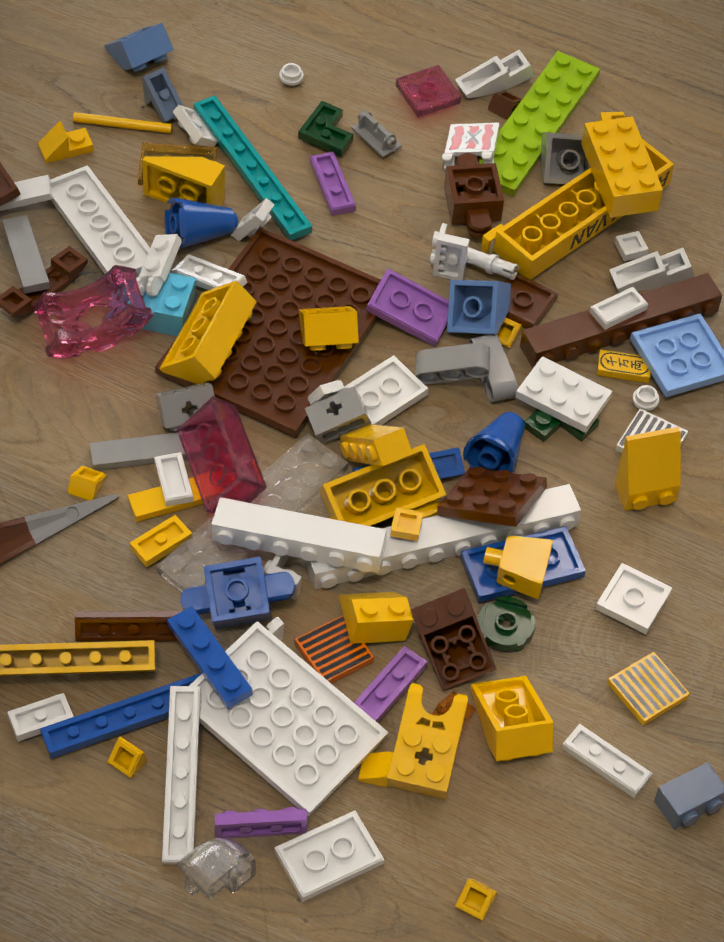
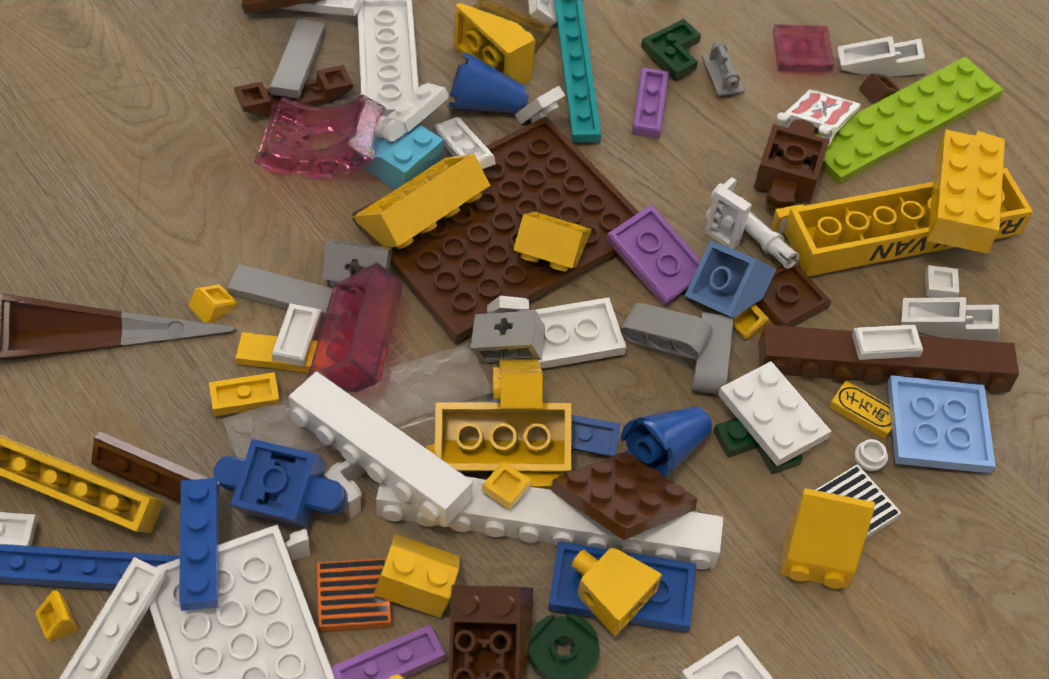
camera: 25 degrees right, 0 degrees up
(562, 157) = (910, 161): light grey slope -> none

